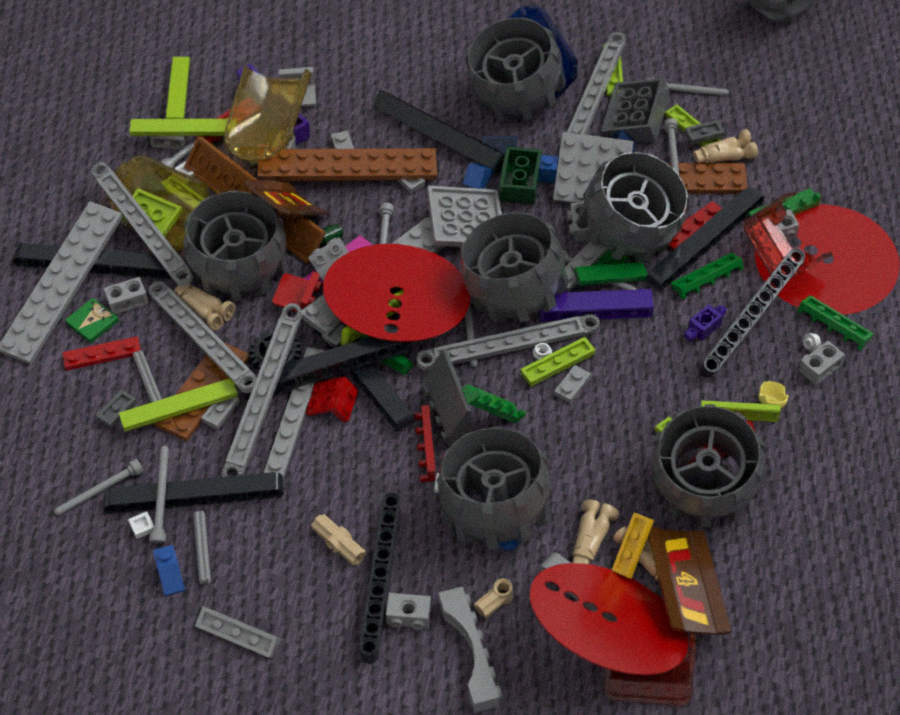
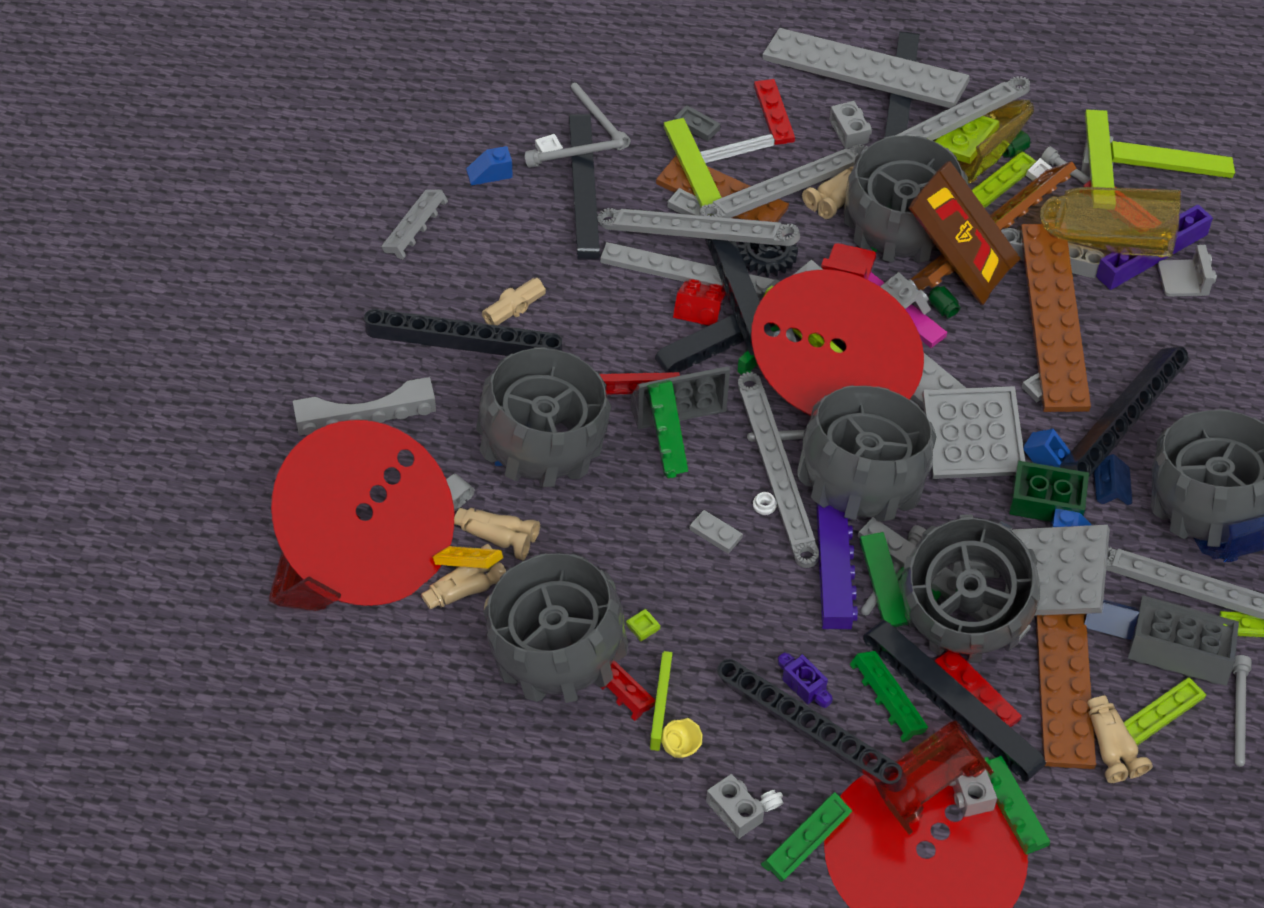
camera: 90 degrees right, 0 degrees up
(92, 320) = (817, 101): green tile -> none
(202, 547) = (520, 194): light grey axle -> none
(342, 140) = (1099, 321): light grey plate -> none
(386, 211) = (984, 358): light grey piece -> none
(401, 603) = (417, 356): light grey brick -> none
(493, 599) = (423, 433): tan piece -> none
(557, 361) = (748, 517): lime plate -> none
(670, 128) = (1158, 680): light grey piece -> none
(688, 582) = (412, 603): reddish brown hinge -> none
(704, 132) = (1144, 714): dark grey plate -> none

